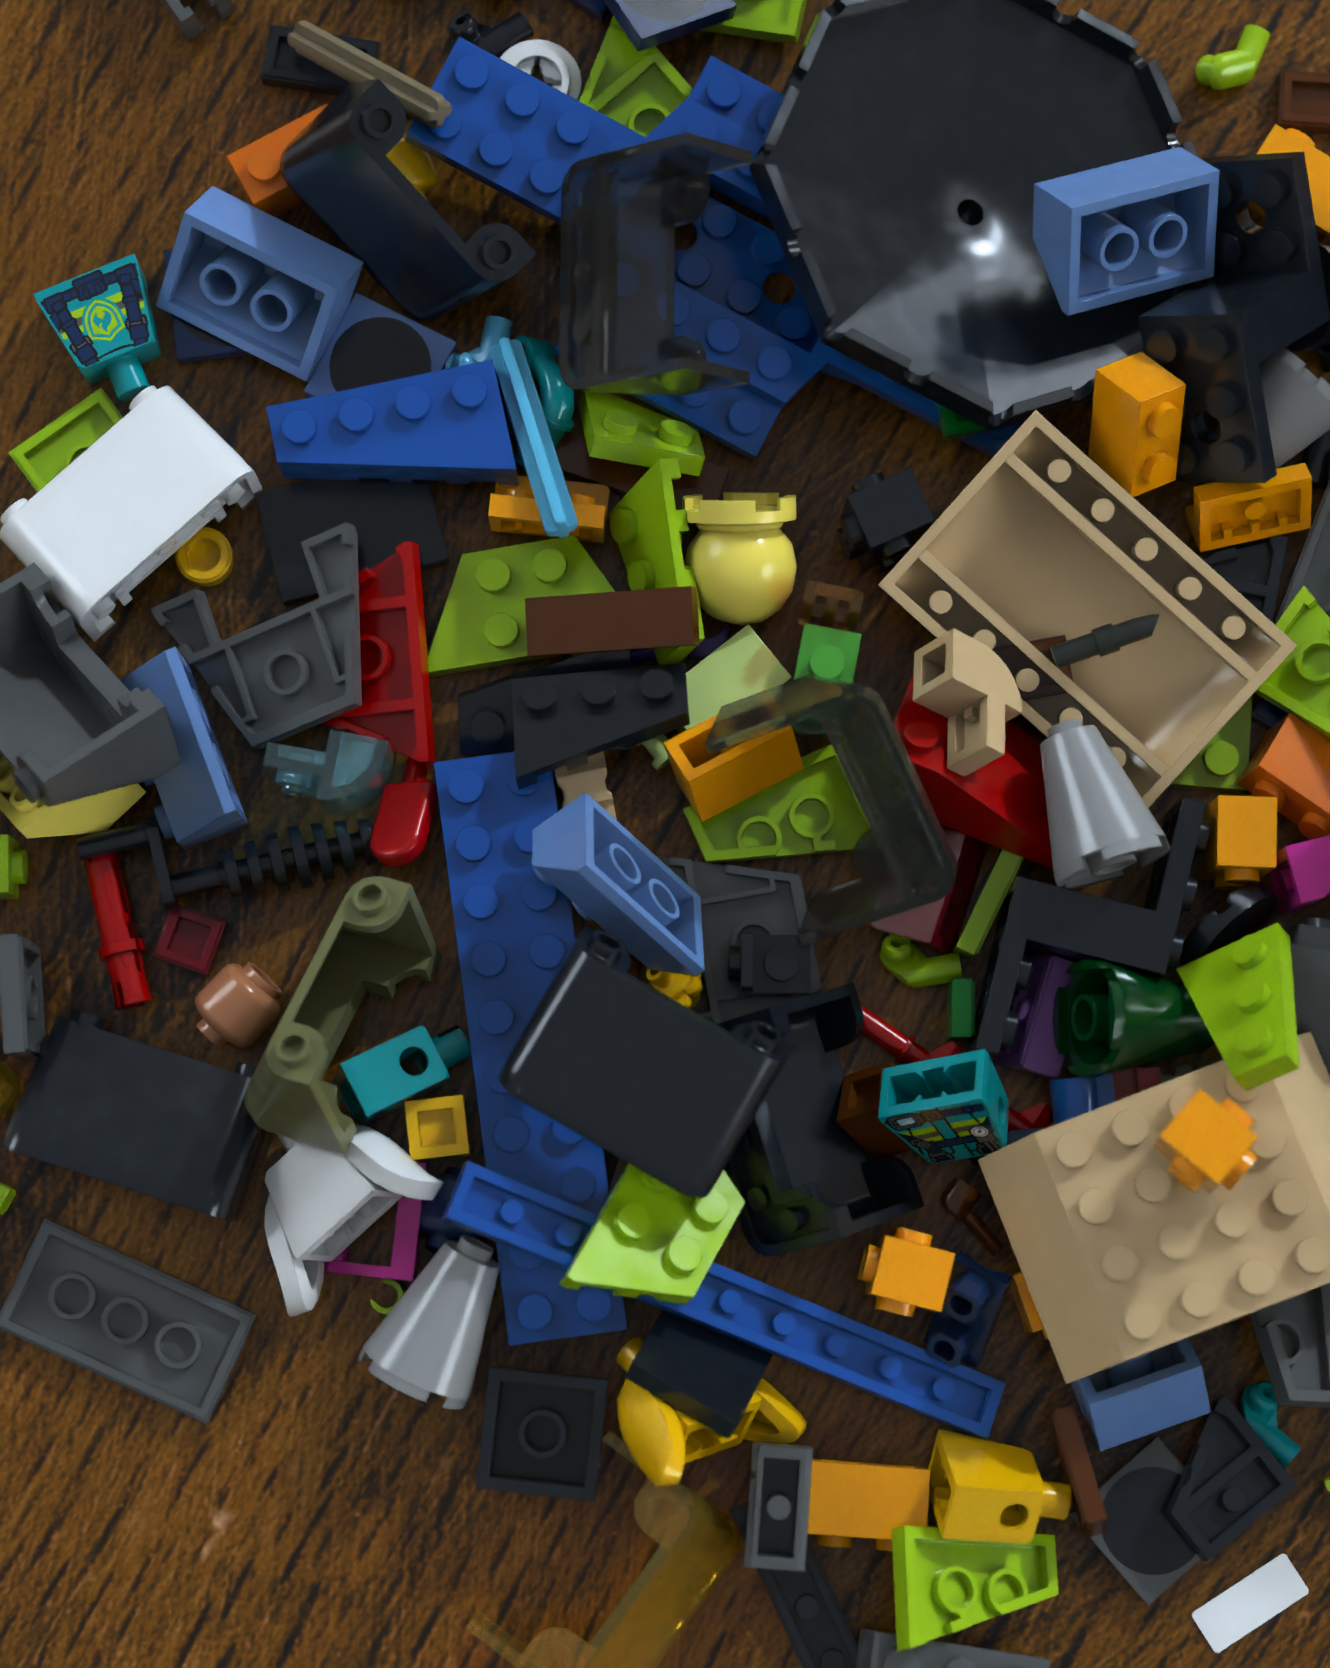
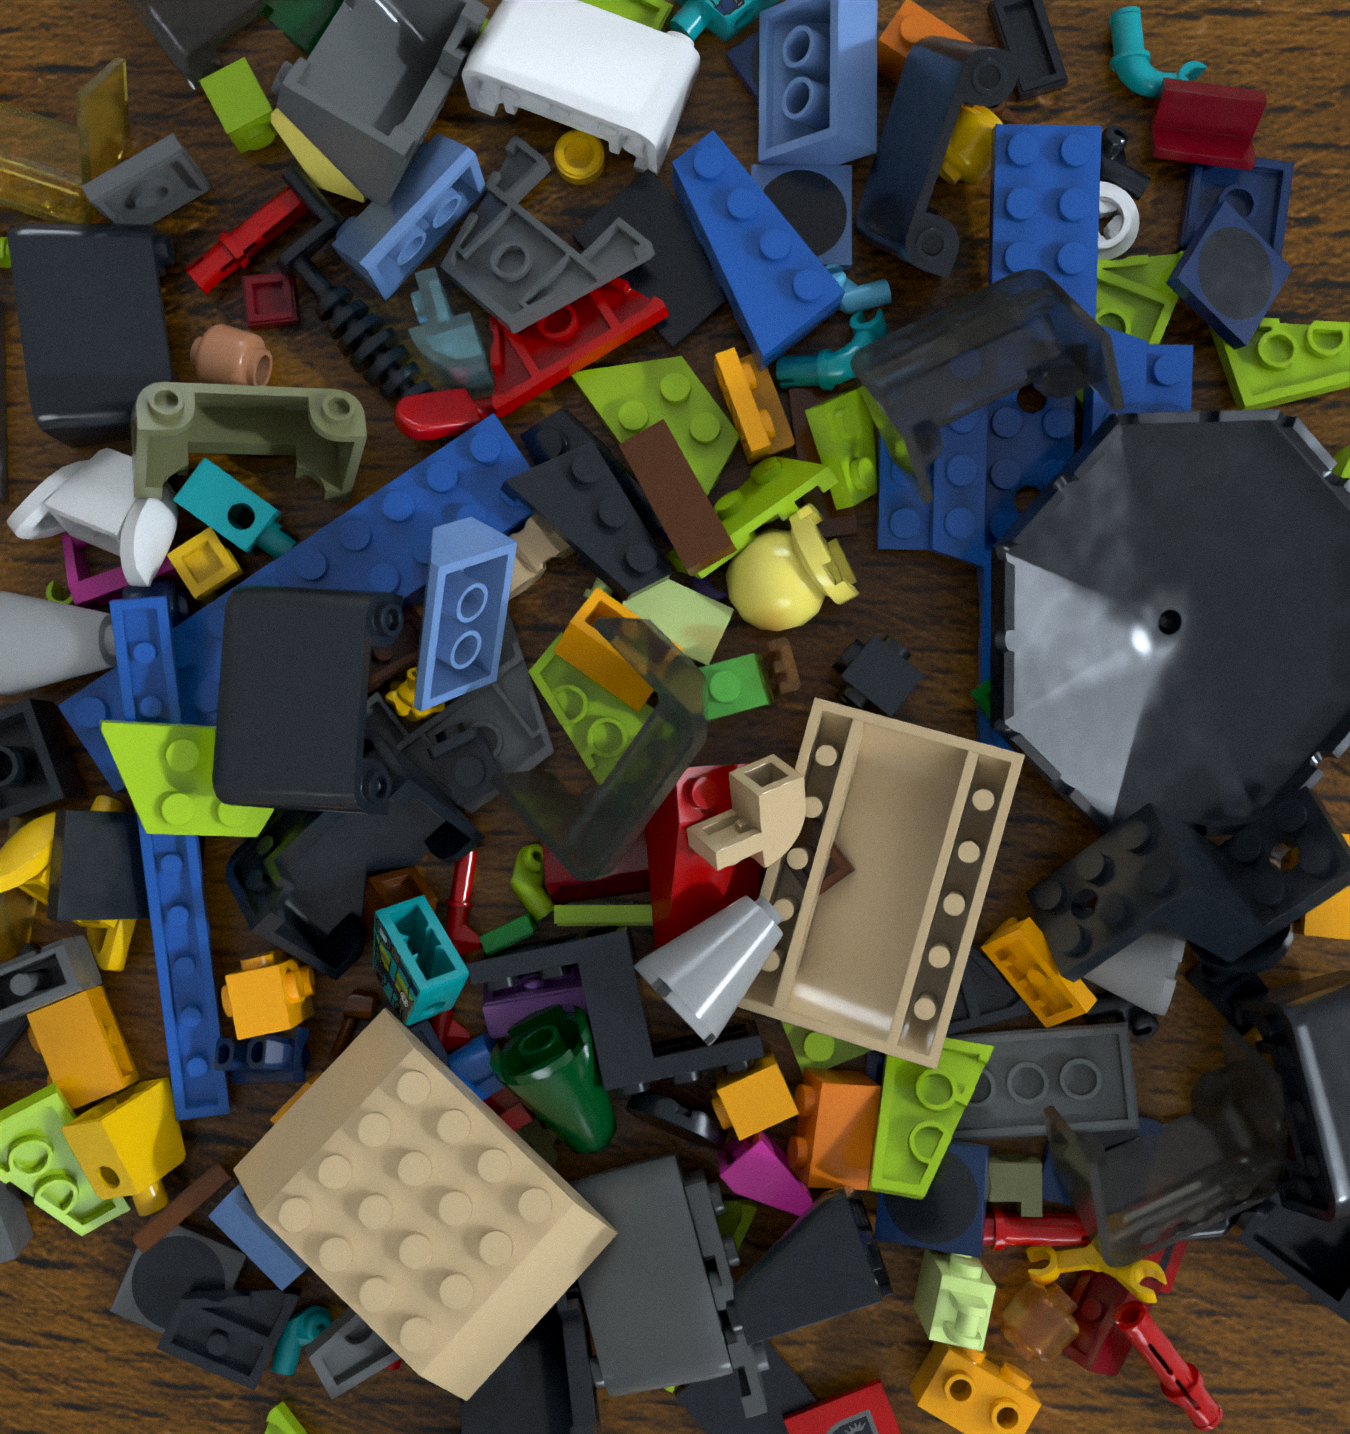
camera: 65 degrees right, 5 degrees up
(358, 67) = (1033, 74): dark tan axle -> none
(533, 438) = (797, 359): medium azure axle -> none
(1104, 640) = (860, 906): pearl dark grey piece -> none
(1127, 228) = (1221, 756): medium blue slope -> none
(1136, 423) = (1058, 844): light orange brick -> none
(1208, 1143) = (453, 1208): light orange brick -> none
(1249, 1004) = (604, 1178): lime wing -> none
(1250, 1603) = (156, 1388): white sticker -> none

